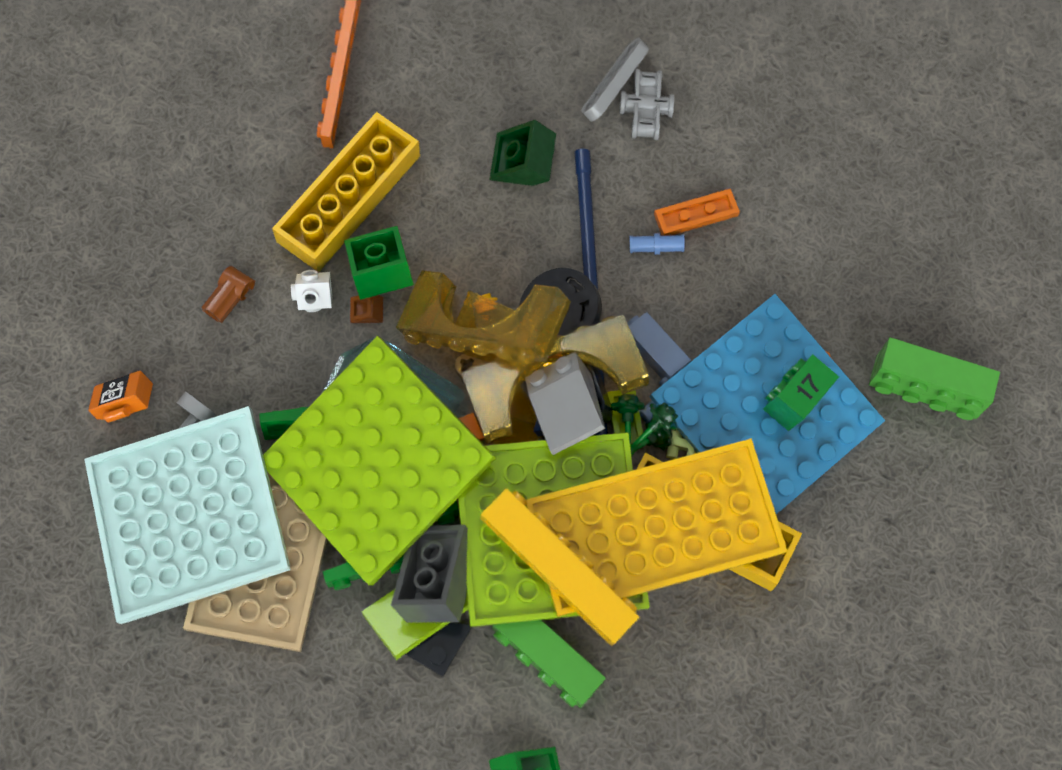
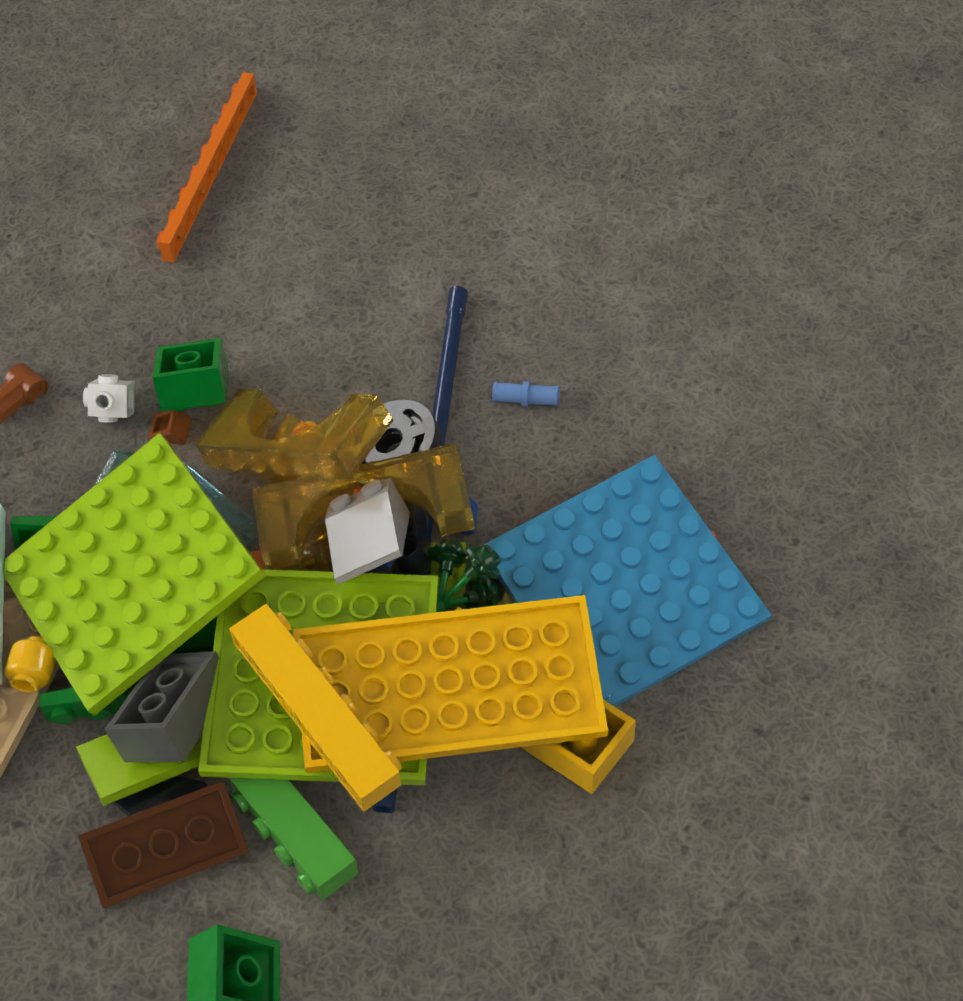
camera: 15 degrees right, 15 degrees down
(308, 547) = (30, 664): none -> yellow head
(347, 192) = (174, 301): yellow brick -> none
(450, 684) = (163, 844): none -> reddish brown plate
(523, 154) = (389, 286): dark green slope -> none
(615, 79) = (511, 222): light grey beam -> none
(646, 104) = (543, 250): light grey axle -> none
(657, 347) = (498, 497): sand blue brick -> none
(696, 213) = (581, 366): orange plate -> none
(799, 391) = (659, 556): green brick -> none
(934, 379) = (836, 569): bright green brick -> none

